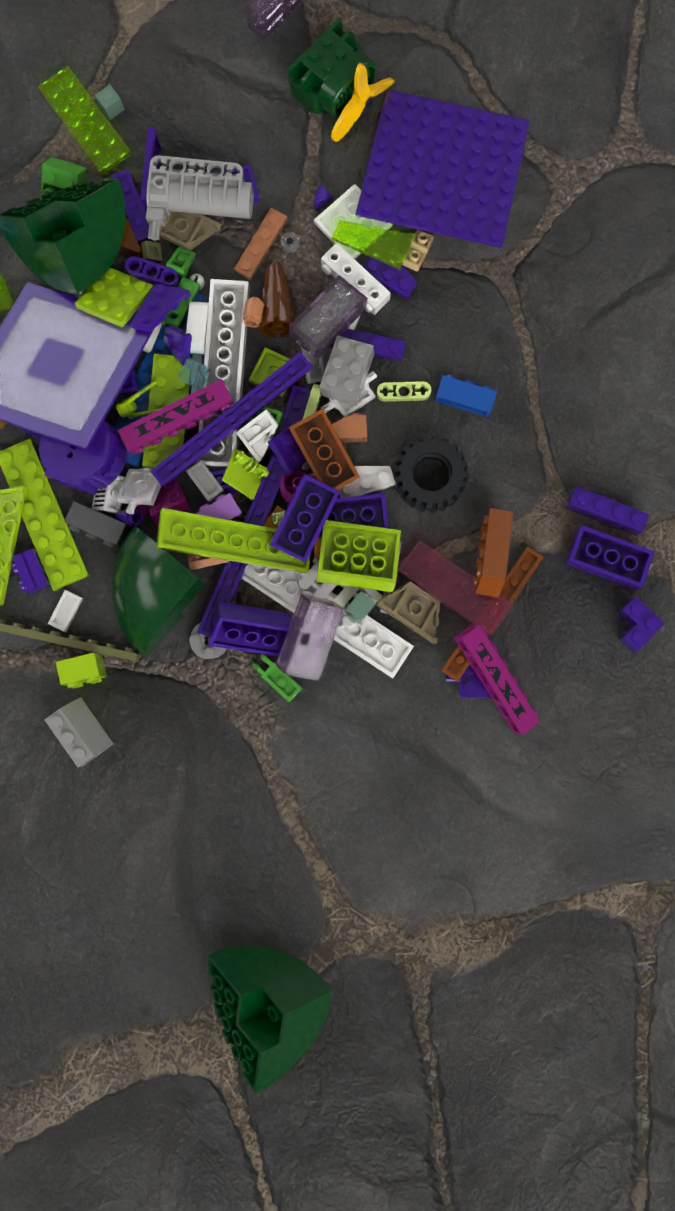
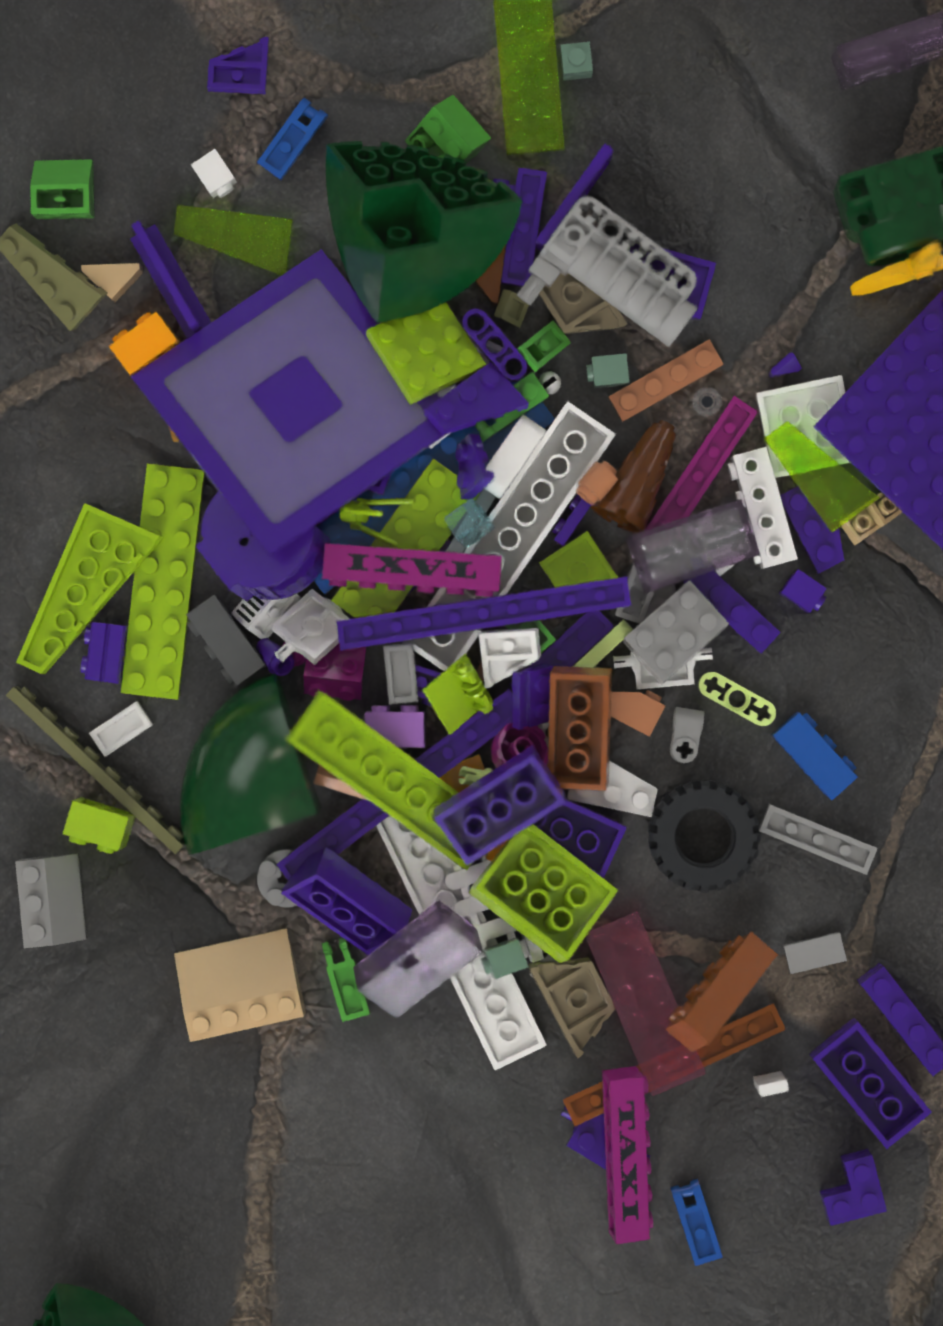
camera: 25 degrees right, 5 degrees up
(217, 717) = (239, 985): none -> tan slope
(225, 254) = (608, 371): none -> sand green brick
(252, 352) = (565, 528): none -> dark purple plate
(309, 267) = (705, 463): none -> magenta plate
(386, 424) = (687, 728): none -> light grey piece
(405, 311) = (804, 591): none -> dark purple brick
(496, 441) = (817, 839): none -> light grey plate
(532, 505) = (814, 952): none -> light grey tile
(554, 590) = (770, 1083): none -> white tile
(561, 697) = (697, 1223): none -> blue plate

